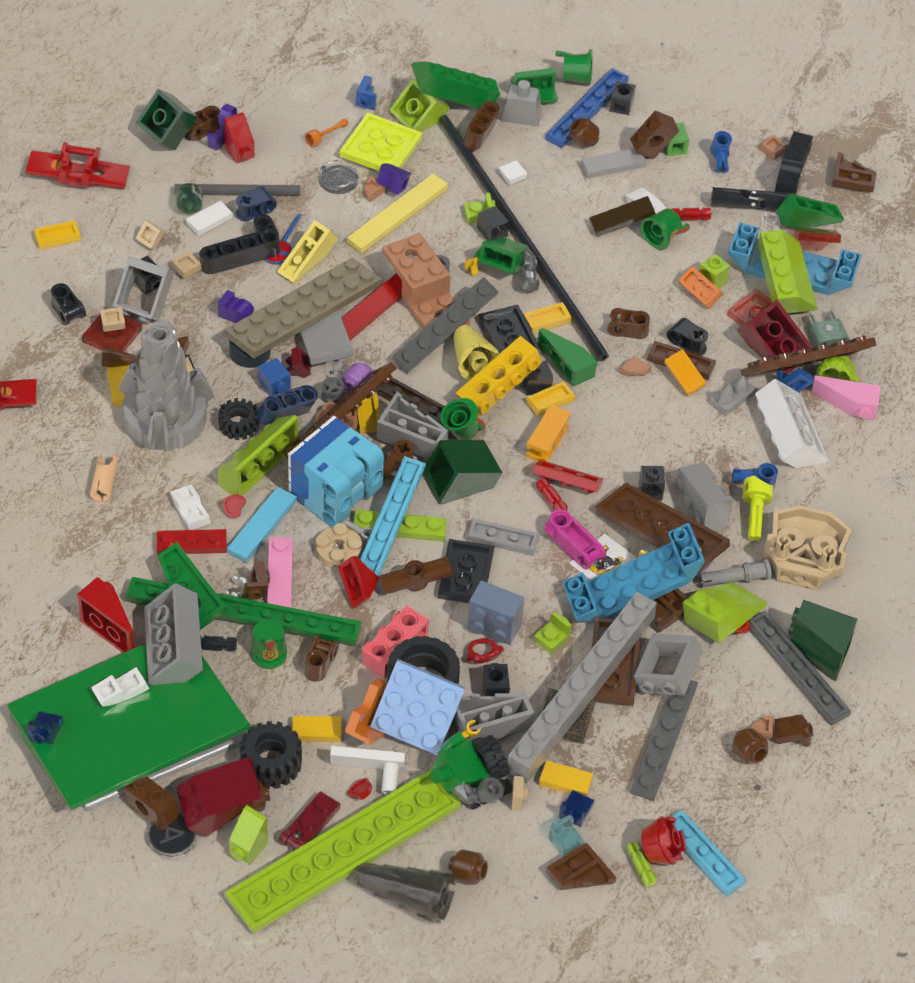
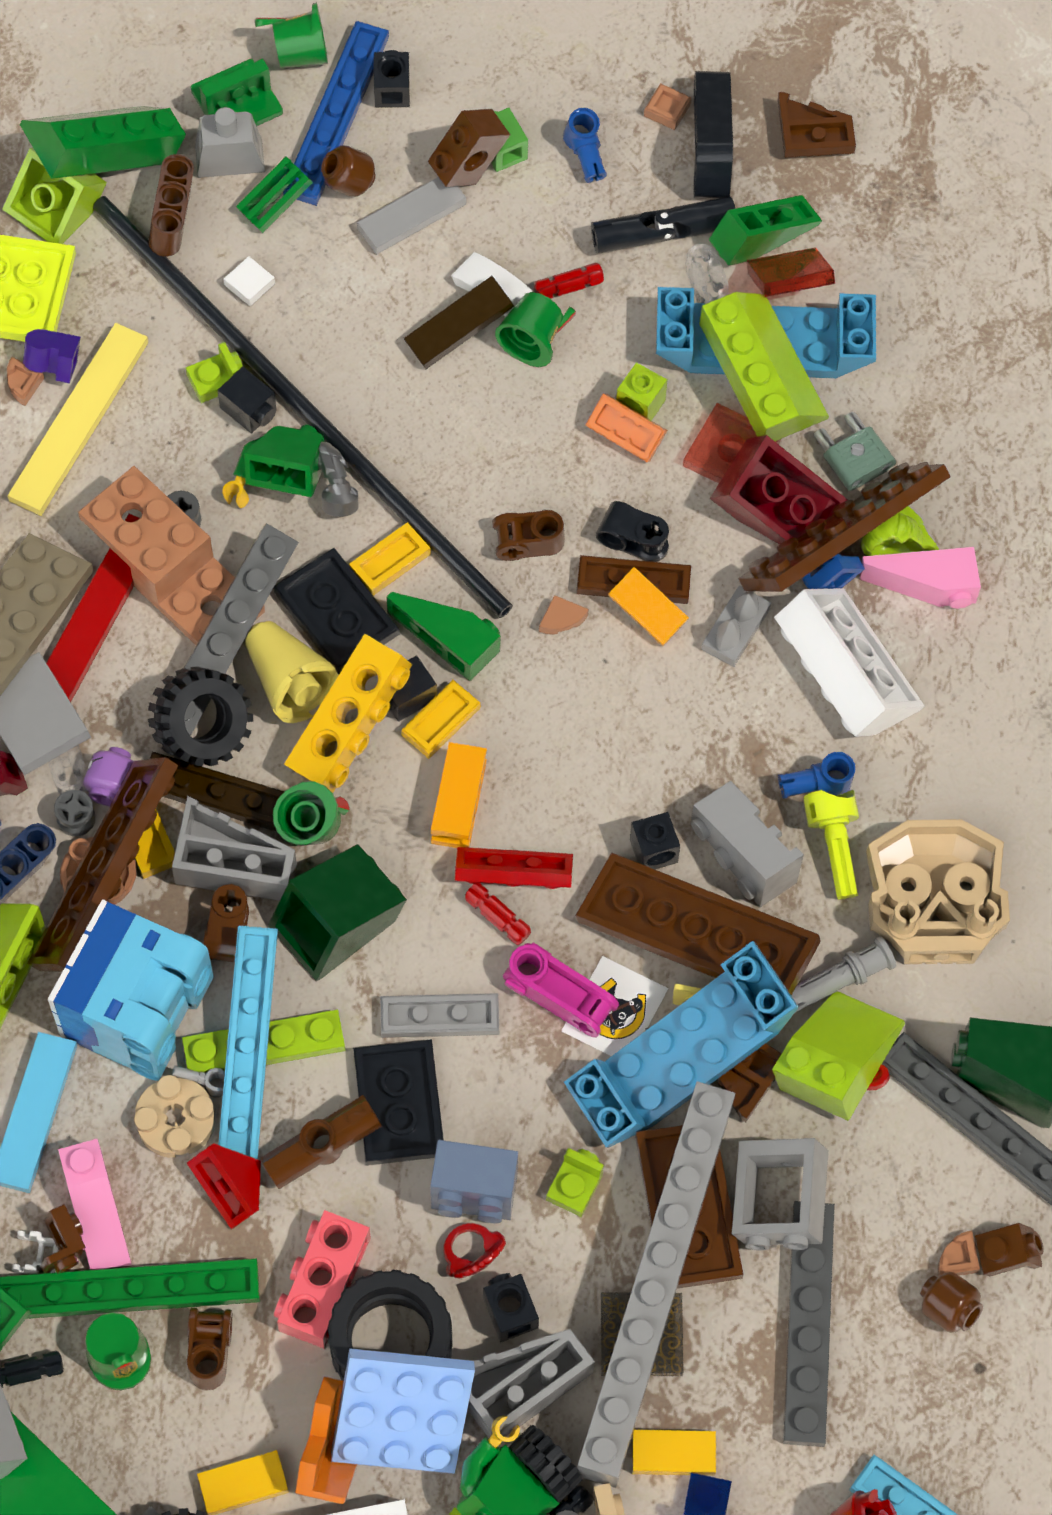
camera: 15 degrees left, 15 degrees up
(432, 349) = (229, 722): none -> black tyre
(538, 133) = (270, 190): none -> green tile

